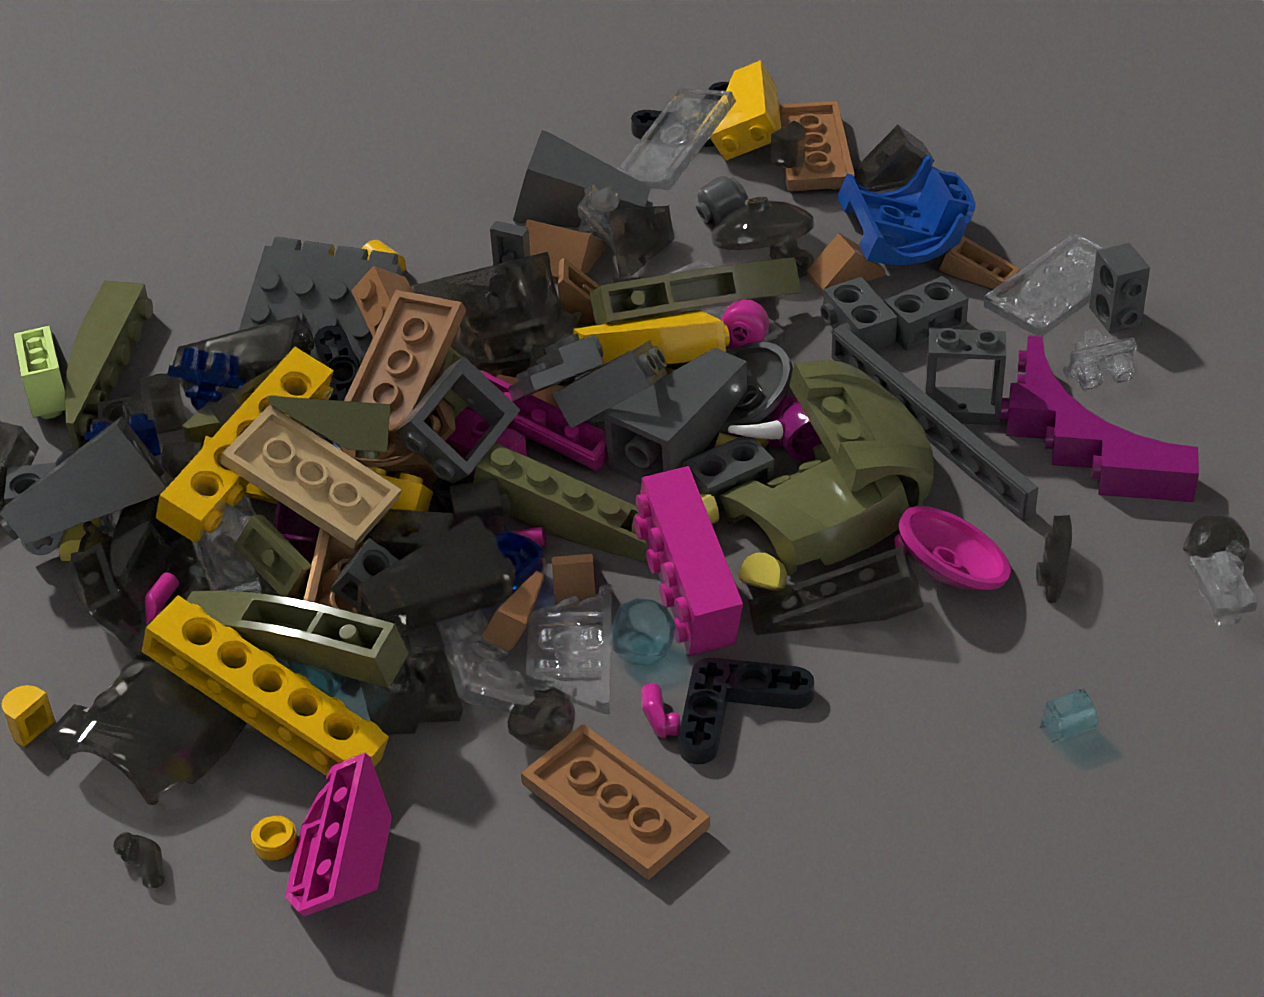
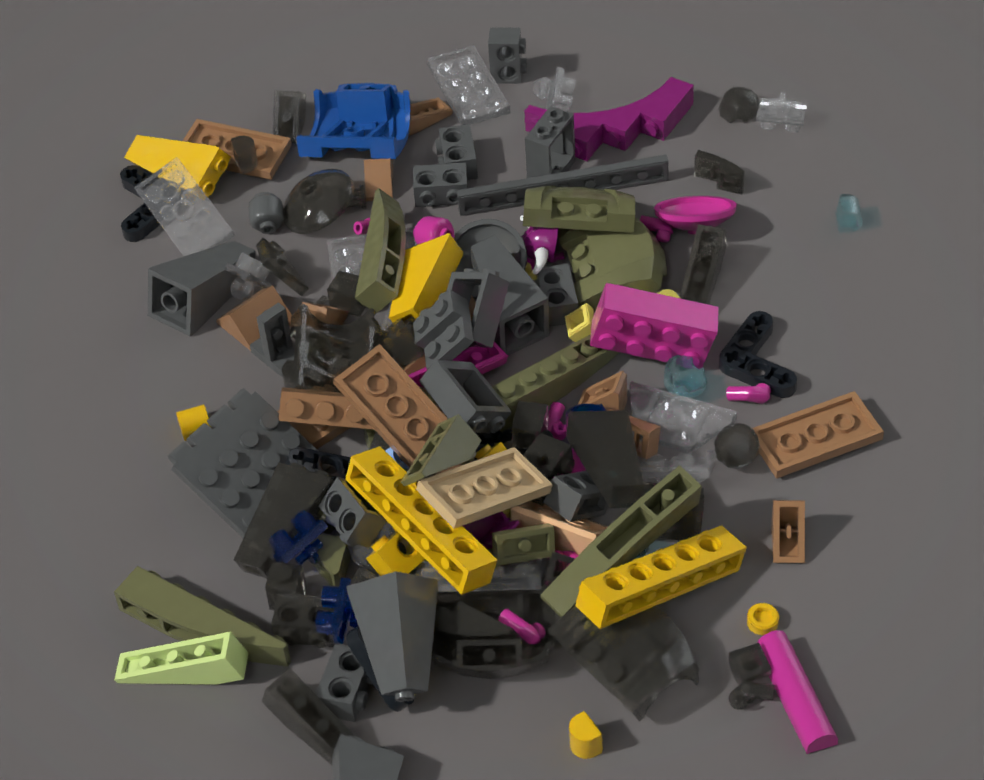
camera: 65 degrees left, 5 degrees up
(159, 904) = (797, 693): none -> dark pink brick
(184, 840) = (749, 664): none -> clear smoke brick
(341, 839) = (799, 580): dark pink wedge -> none
(420, 816) = (788, 531): none -> medium nougat slope

